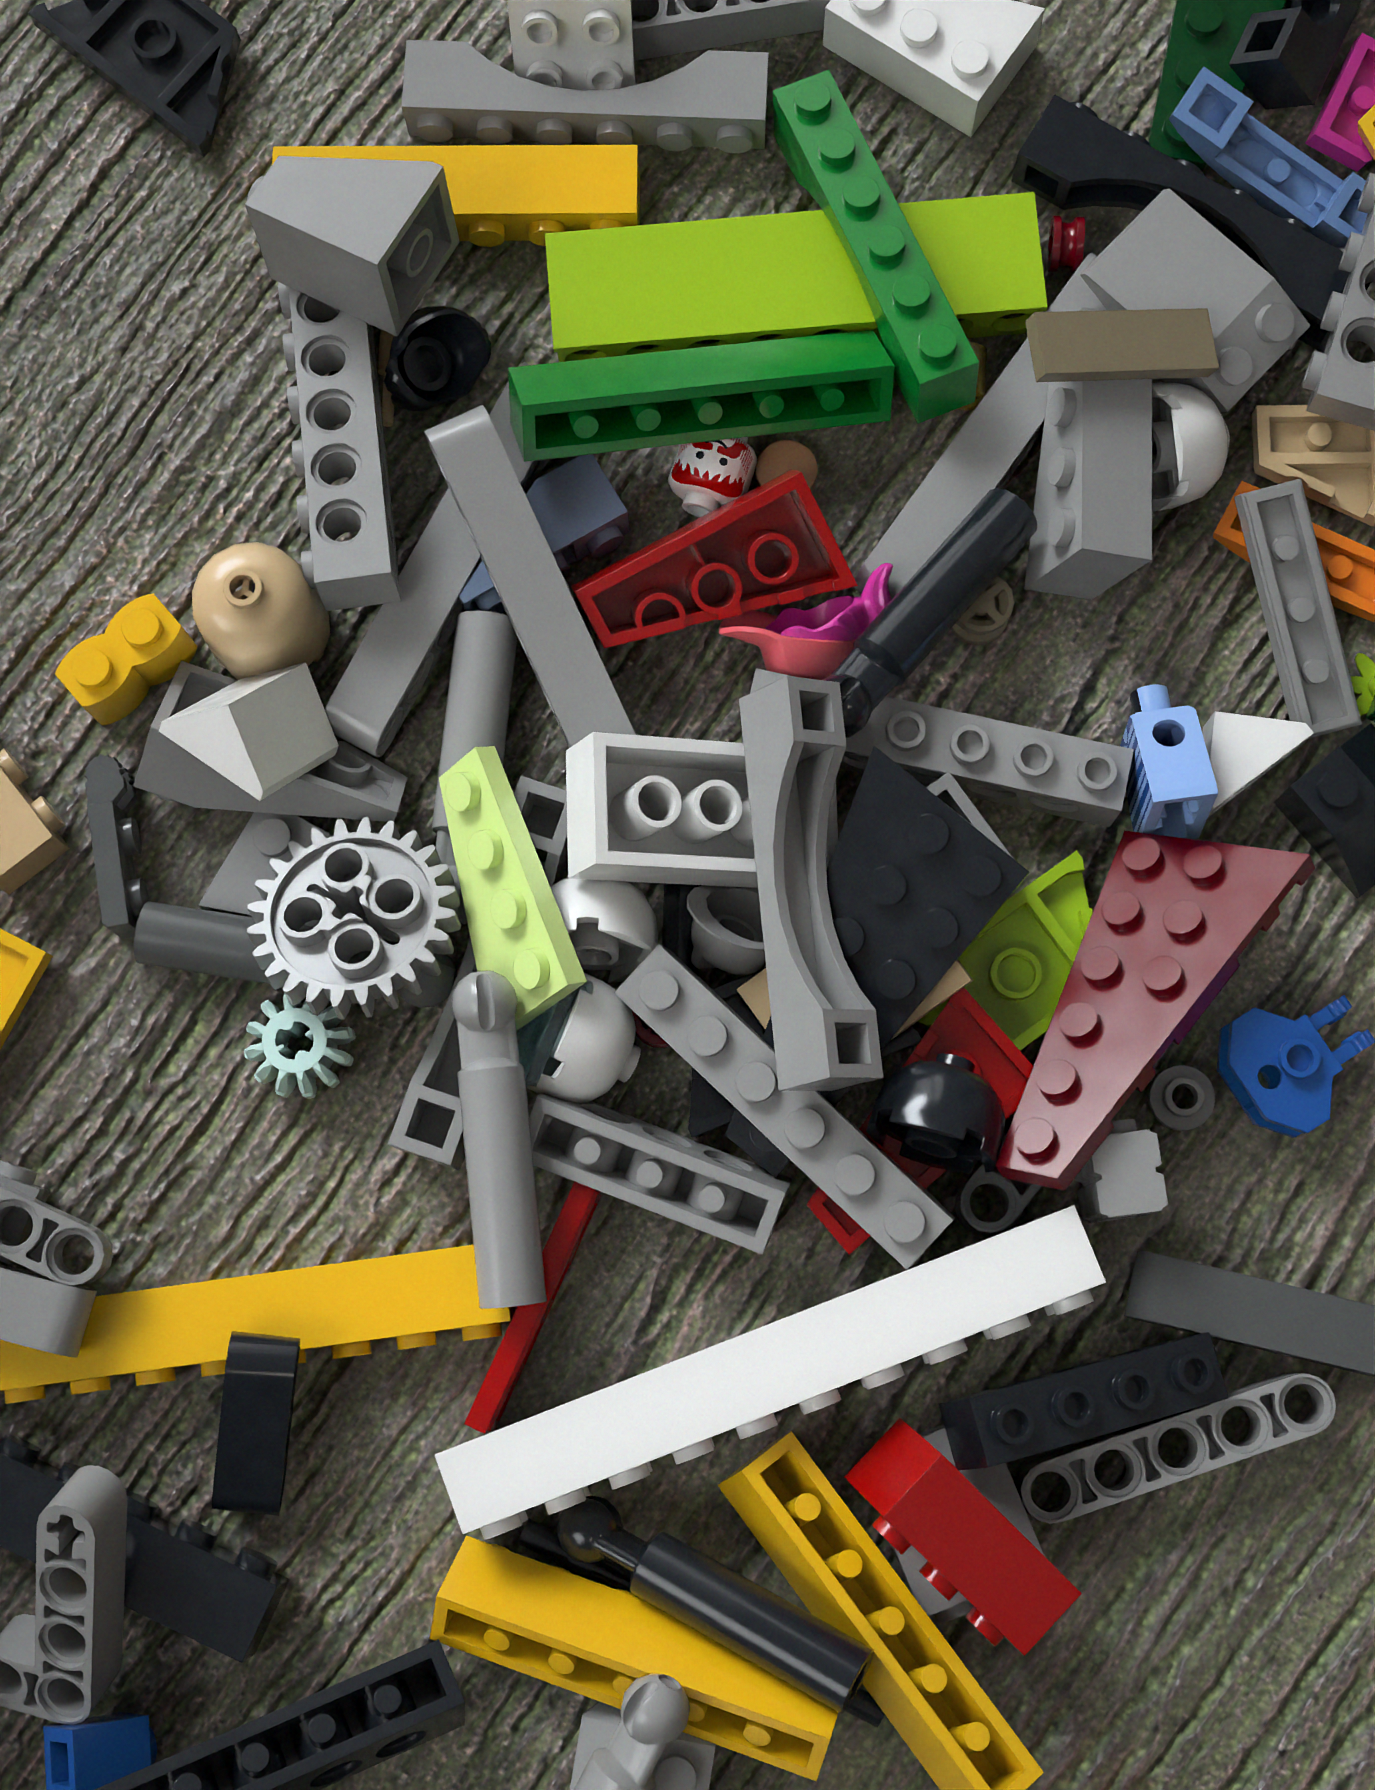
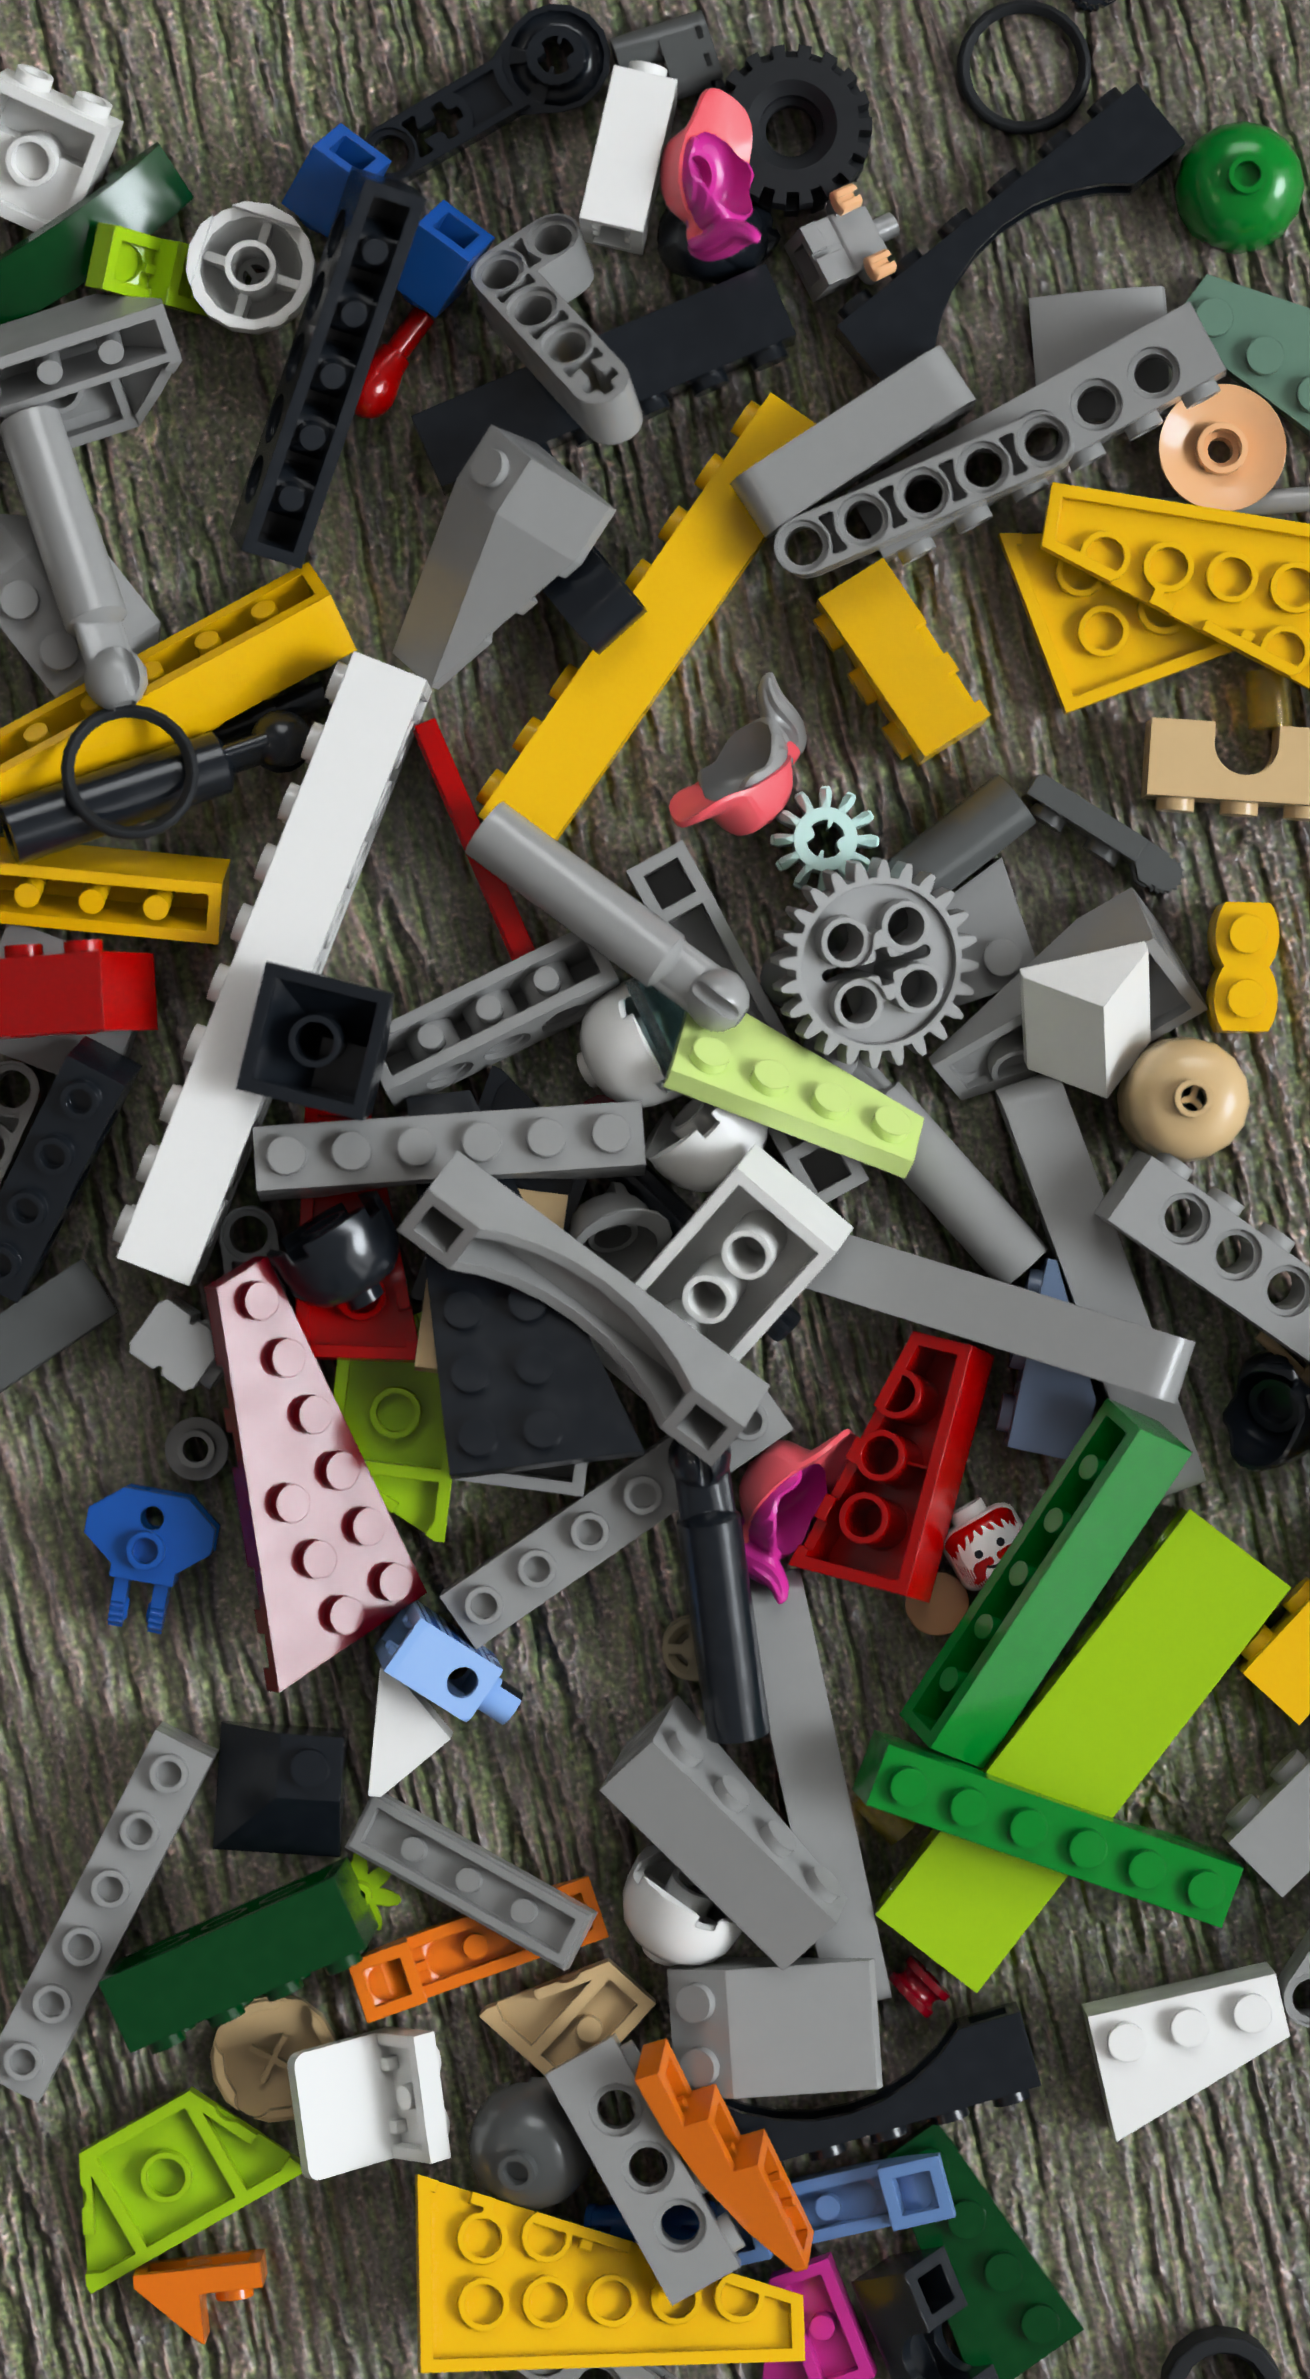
camera: 125 degrees right, 10 degrees up
(114, 1105) = (898, 663): none -> yellow wedge
(218, 1715) = (390, 364): none -> red piece
(278, 1496) = (501, 540): none -> light grey wedge
(293, 1145) = (753, 771): none -> hair
(784, 1628) = (104, 826): none -> black tyre
(795, 1278) = (317, 1041): none -> black slope
(1121, 344) = (779, 1922): dark tan tile -> none
(1323, 237) = (733, 2167): none -> orange slope

